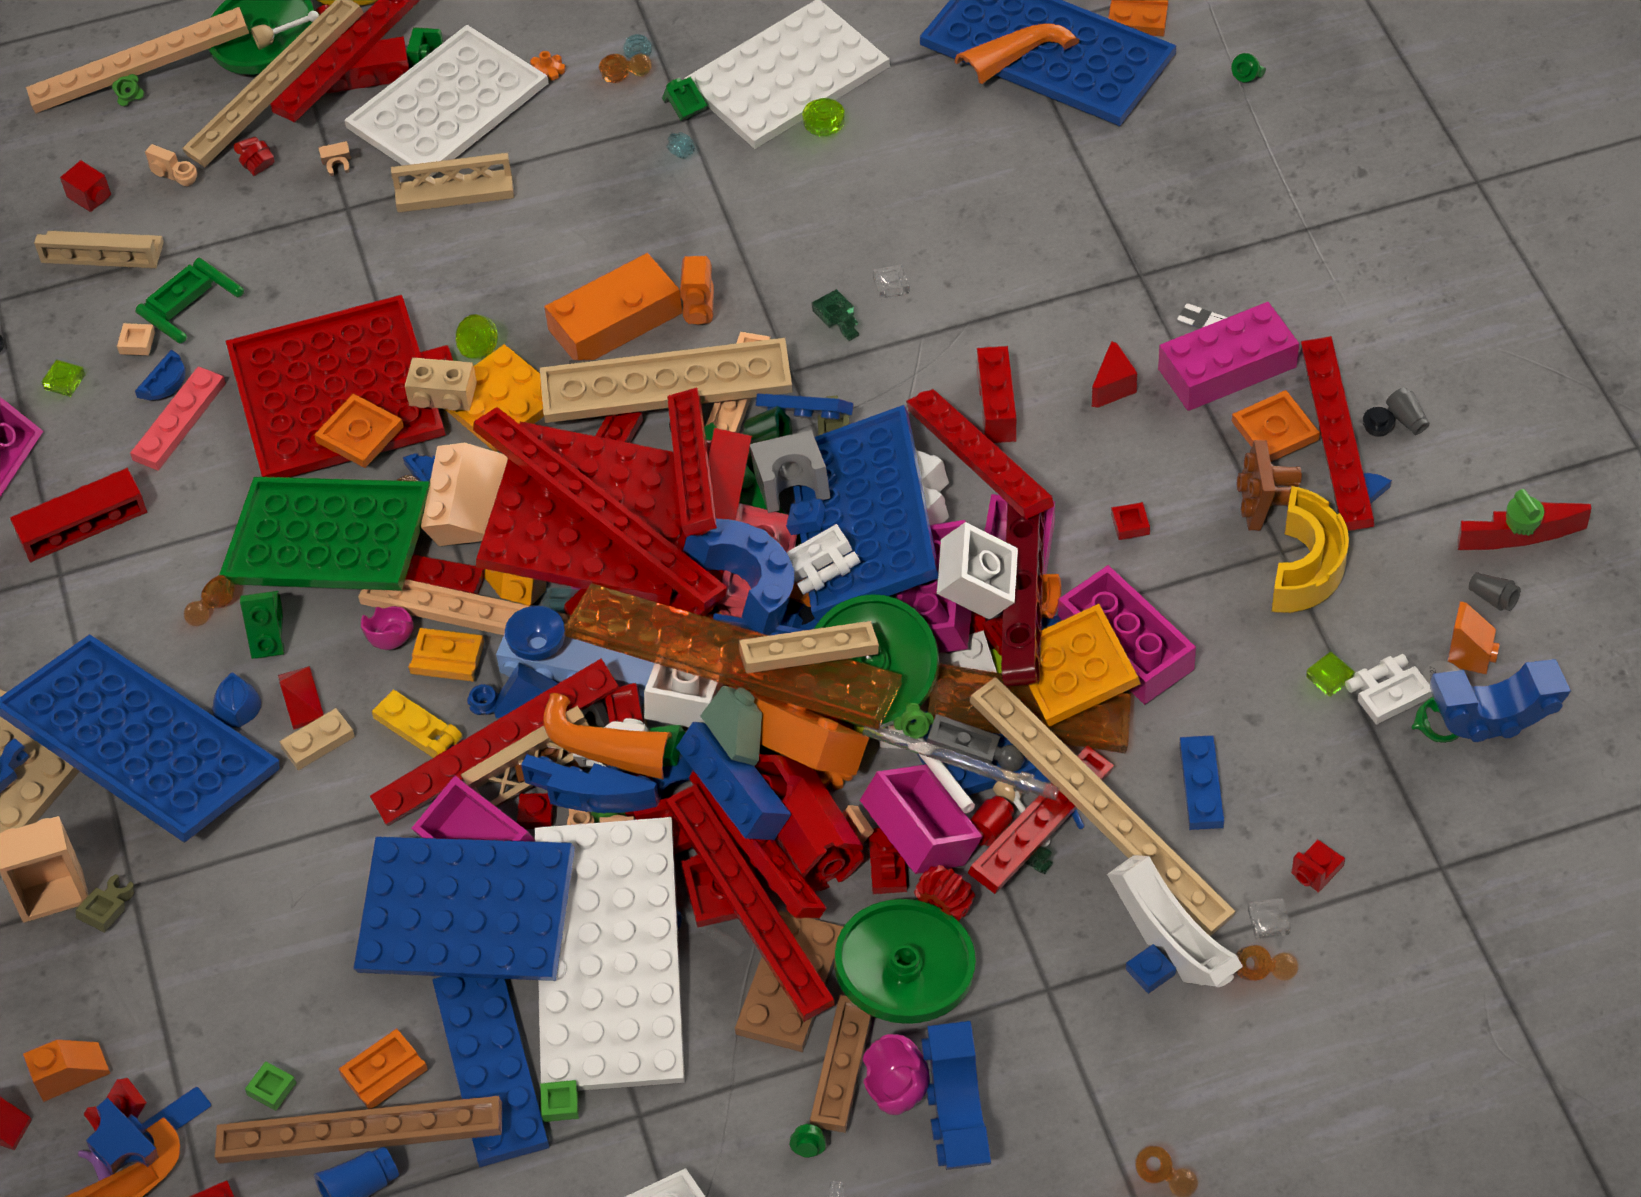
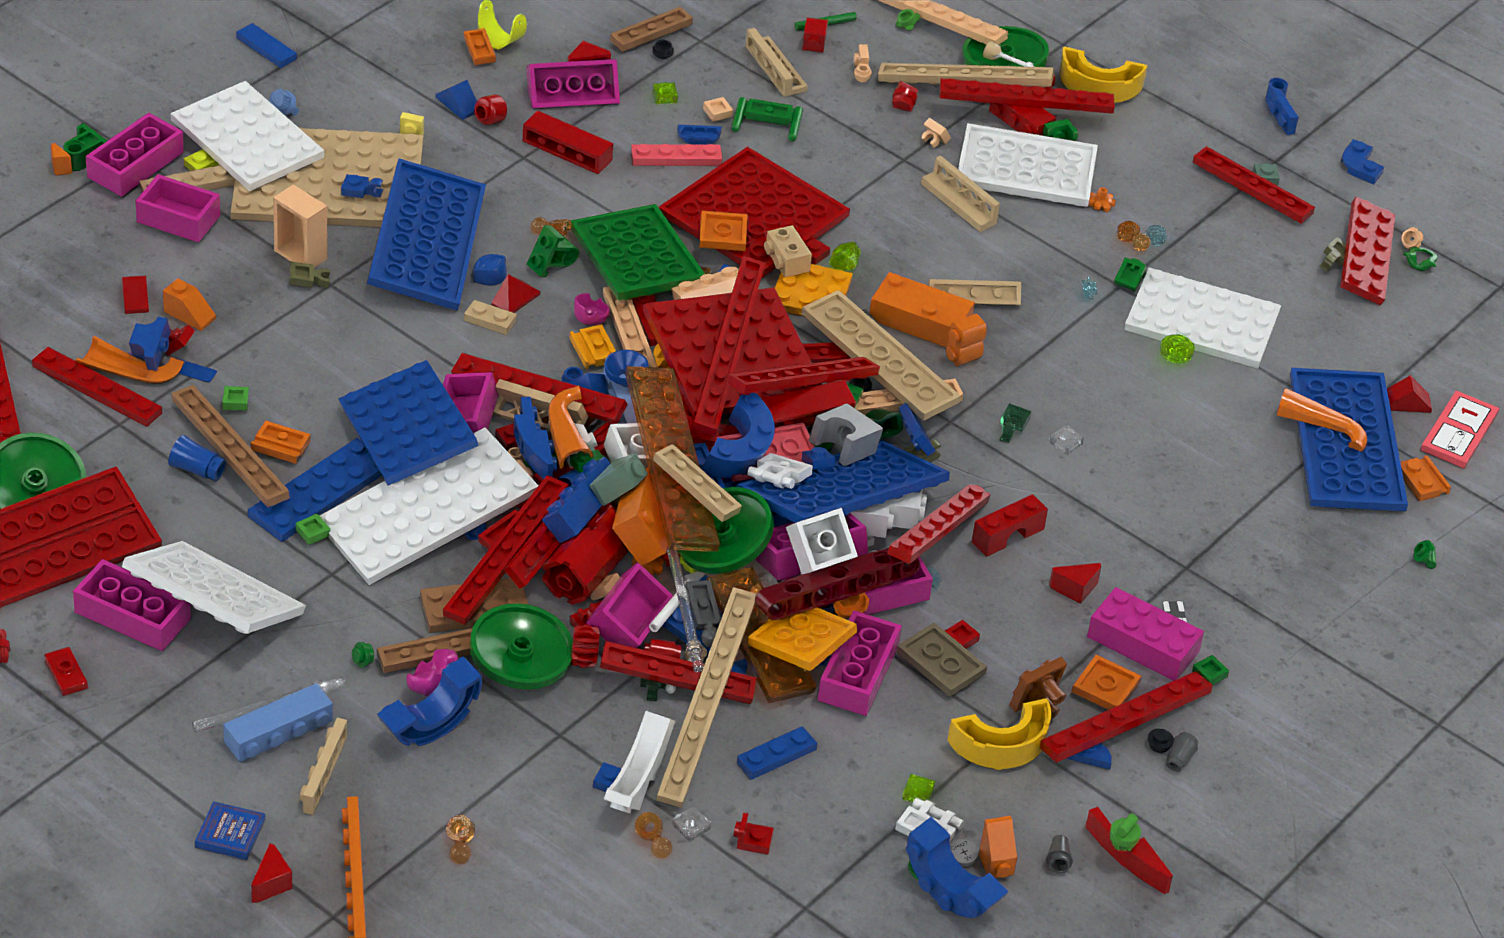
camera: 50 degrees right, 10 degrees down
(64, 165) = (831, 20): none -> green bar
(415, 724) = (534, 352): yellow plate -> none
(618, 242) = (982, 291): none -> tan plate
(918, 728) = (696, 571): bright green plate -> none
(1157, 555) = (941, 659): none -> dark tan plate
(1307, 326) = (1211, 669): none -> green plate

